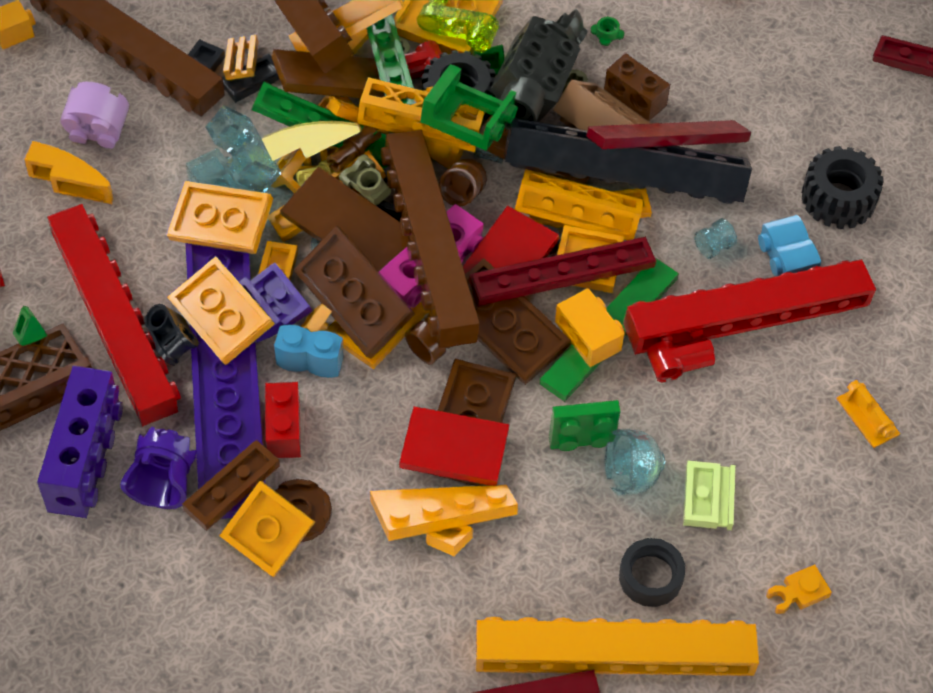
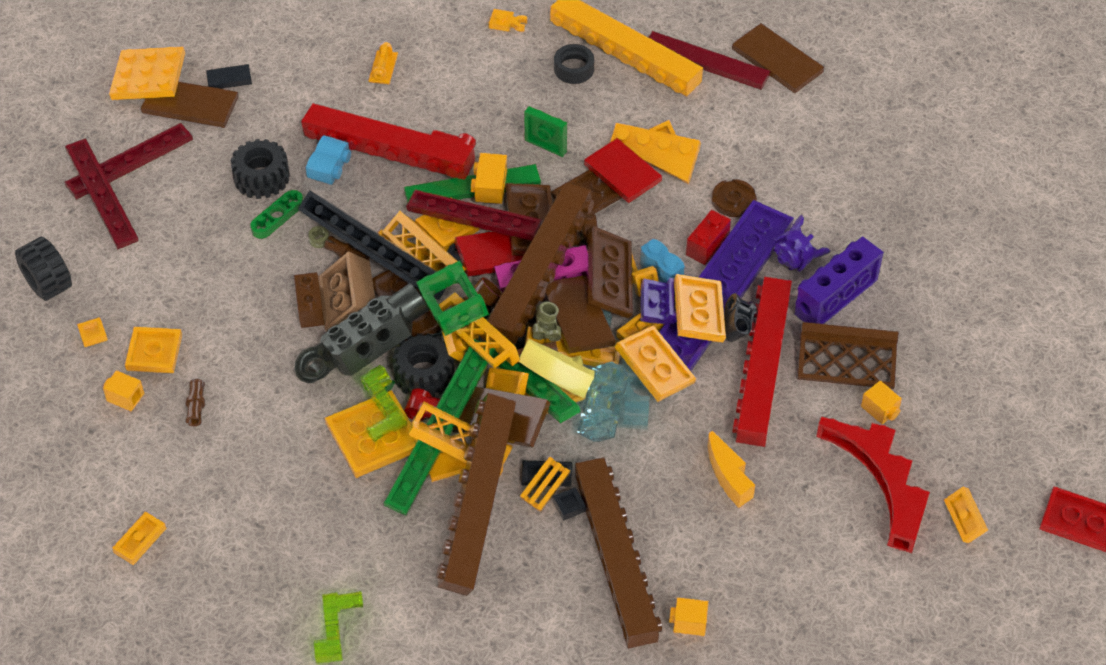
camera: 140 degrees left, 5 degrees down
(28, 328) = (824, 380): green slope -> none
(94, 114) = (683, 491): lavender brick -> none
(231, 485) = (766, 212): reddish brown plate -> none
(267, 528) = (762, 186): light orange plate -> none
(607, 24) = (281, 350): green plate -> none
(633, 461) = (537, 96): clear light blue cylinder -> none
(668, 134) = (333, 240): dark red tile -> none
(709, 495) = (508, 78): yellowish green plate -> none
(718, 237) = (363, 190): clear light blue wheel -> none
(779, 154) = (273, 223): none -> green beam

